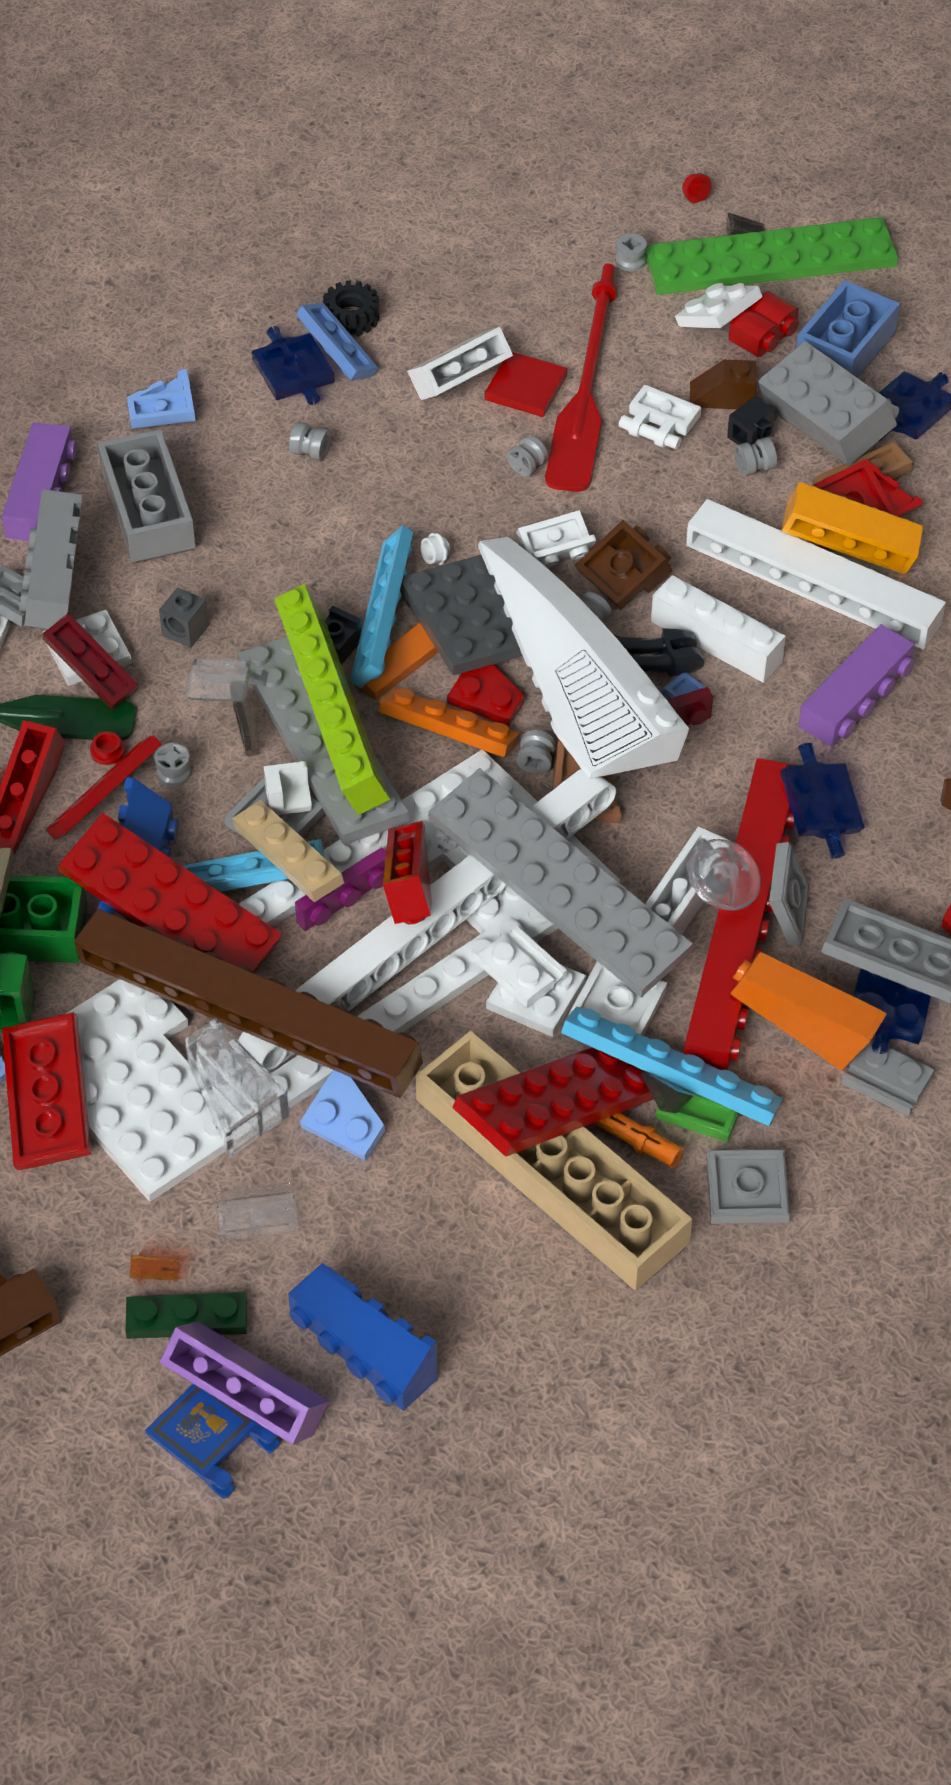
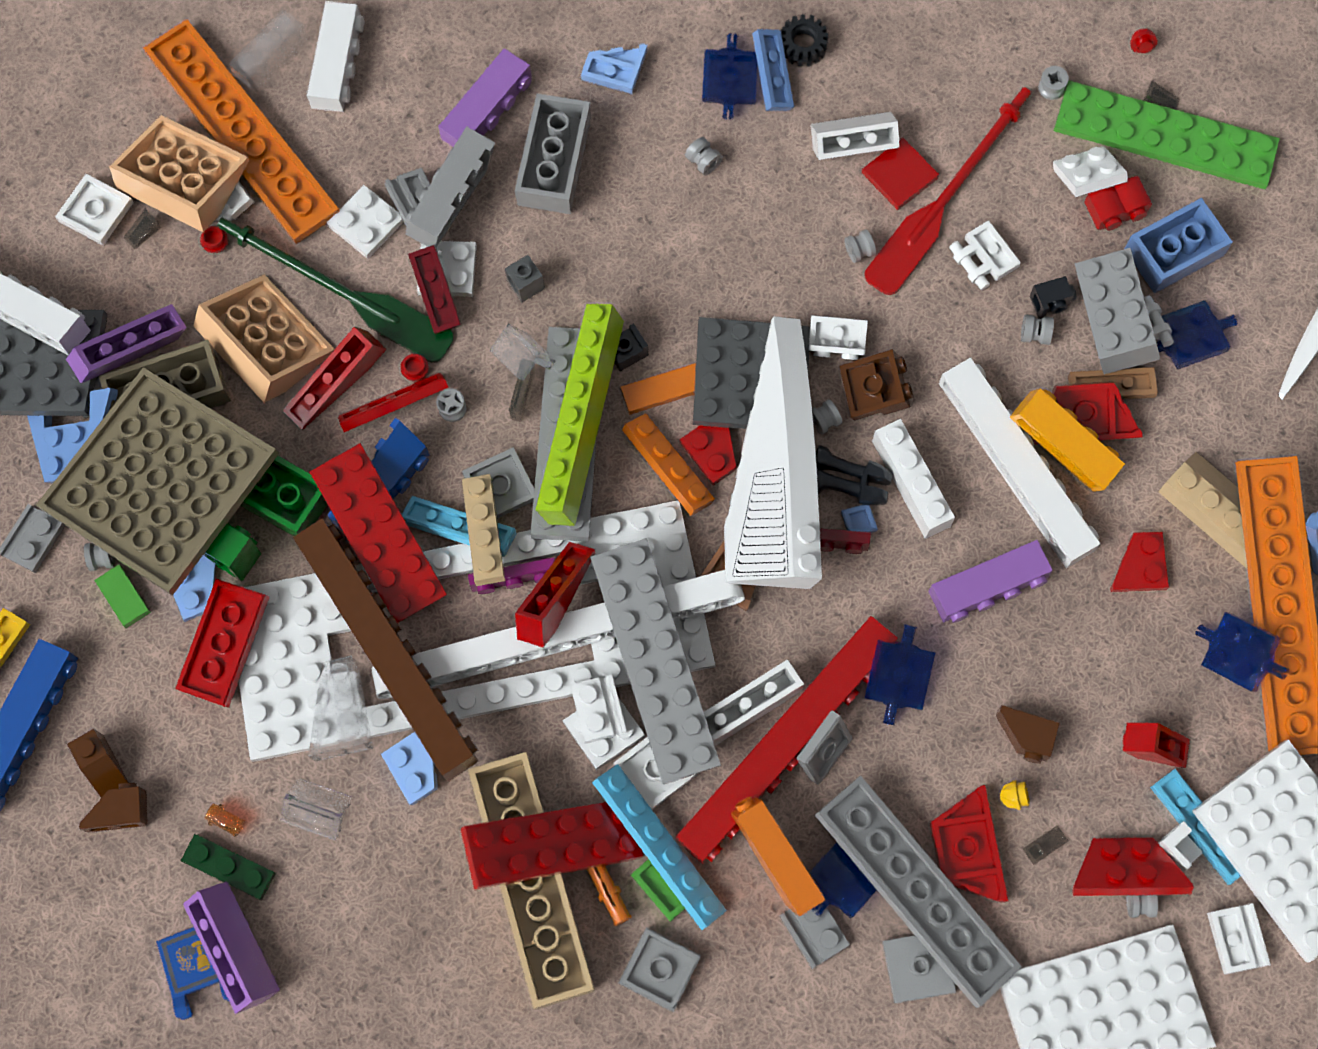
camera: 30 degrees right, 20 degrees up
(287, 788) = (513, 473): white panel -> none
(365, 1336) = (329, 951): blue wedge -> none
(381, 607) = (670, 340): medium azure plate -> none
(435, 549) = (744, 300): white plate -> none
(536, 751) = (714, 523): light grey wheel -> none
(666, 1094) = (641, 868): clear smoke piece -> none
(723, 874) = (777, 716): clear piece -> none
(725, 385) = (1051, 250): reddish brown slope -> none

